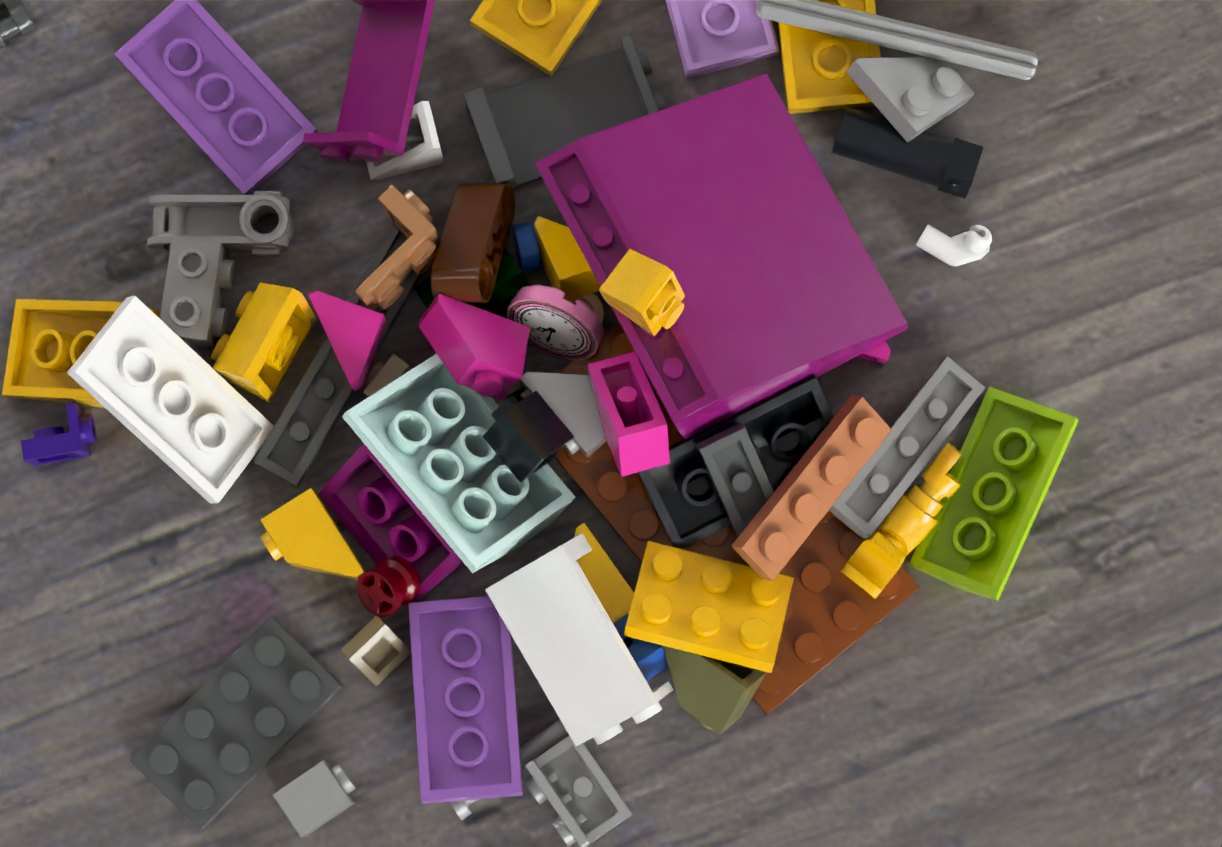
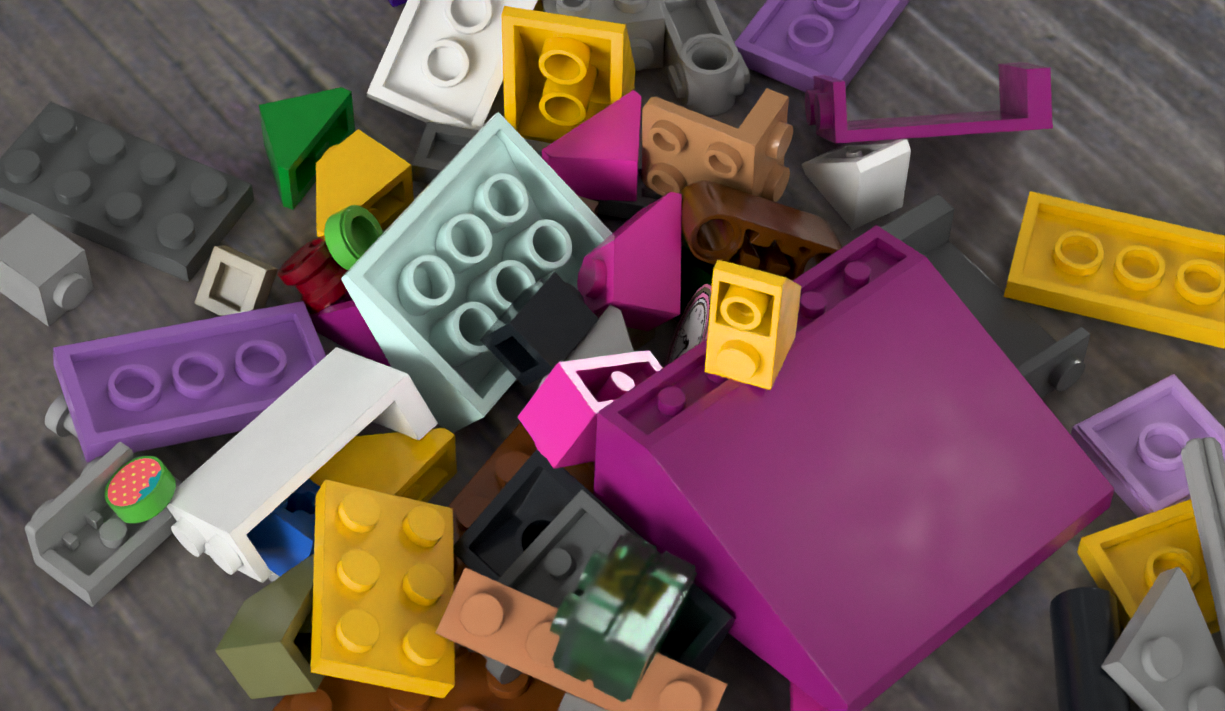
camera: 70 degrees right, 30 degrees down
(237, 568) = (299, 134): none -> green slope
(376, 550) = (351, 234): none -> bright green tile
(566, 760) = (140, 489): none -> tile
(814, 452) = (622, 615): none -> clear green brick

